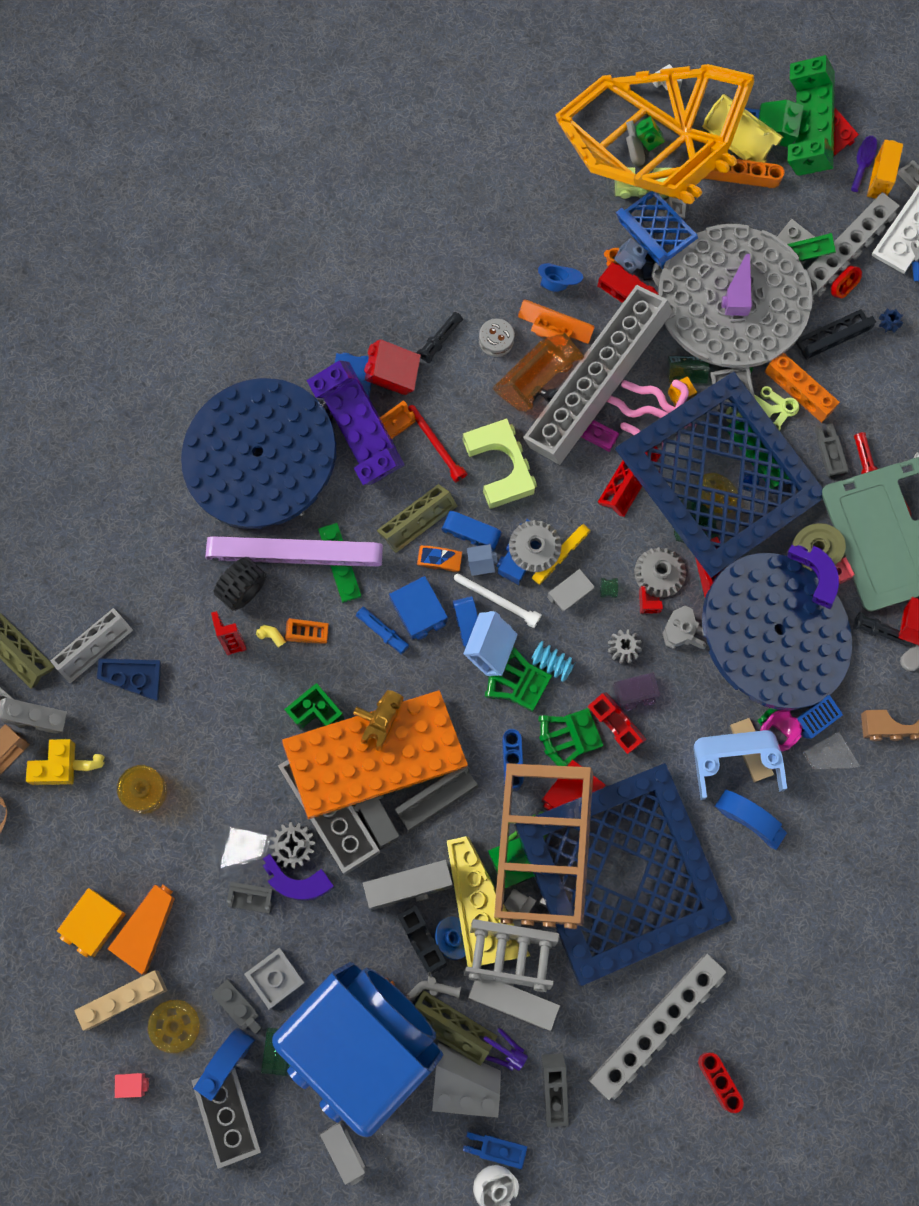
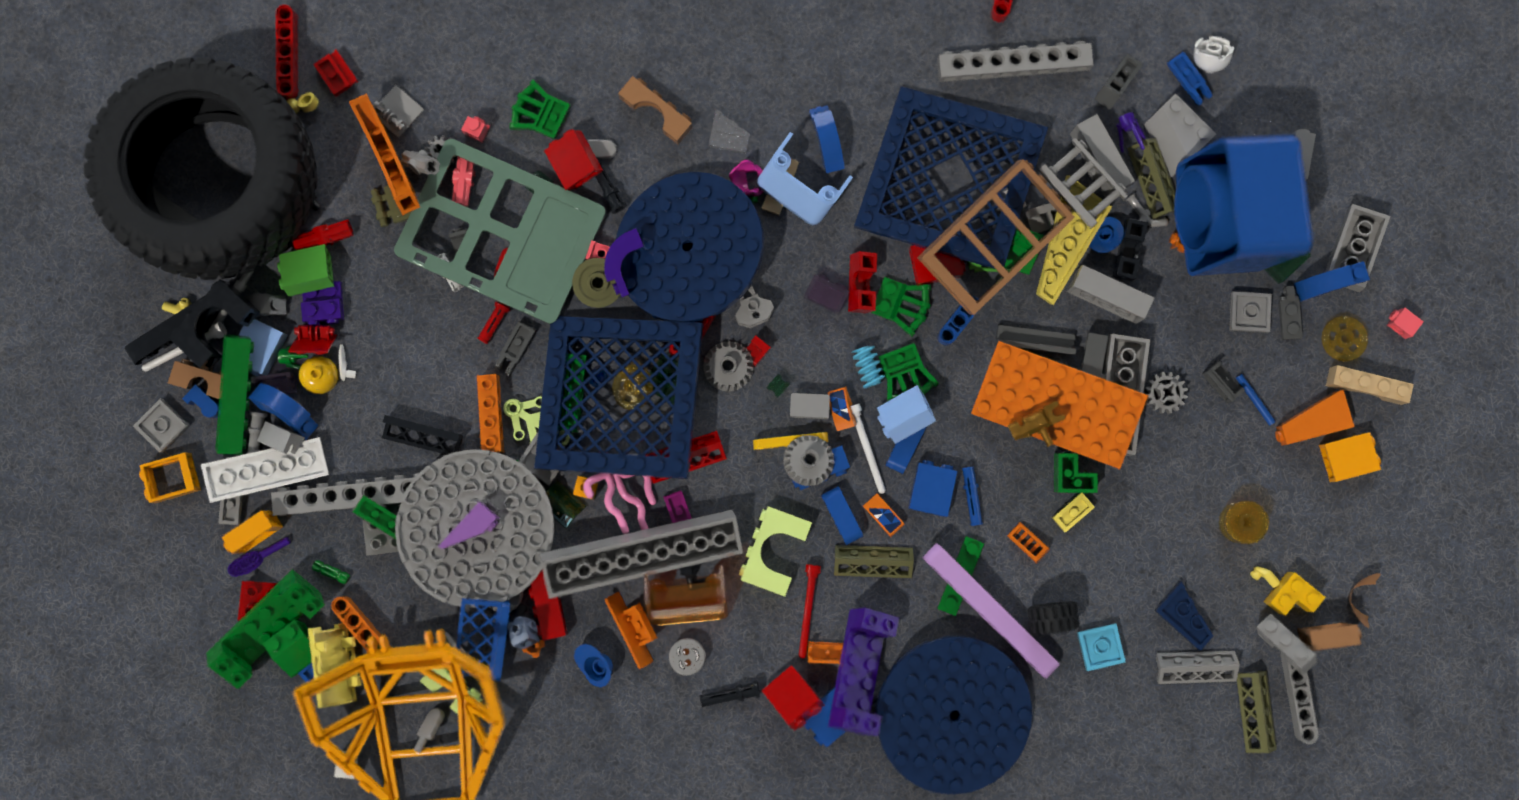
camera: 135 degrees left, 10 degrees up
(182, 598) = (1101, 647): none -> medium azure plate
(210, 906) = (1255, 399): none -> blue bar
(228, 635) = (1101, 584): red fence -> none
(243, 847) = (1201, 420): clear wing -> none
(270, 632) = (1055, 561): light yellow arm -> none
(290, 683) = (1073, 512): none -> light yellow plate
(302, 890) = (1187, 359): dark purple arch -> none
(481, 559) = (855, 485): sand blue brick -> none
(546, 611) = (840, 409): none -> slope
(616, 644) = (811, 337): light grey gear -> none
(649, 133) = (409, 727): green brick -> none
(804, 192) = (330, 571): none -> green axle
(819, 717) = (715, 163): blue panel -> none
(846, 281) = (372, 468): red plate -> none
(892, 325) = (374, 410): dark blue gear -> none

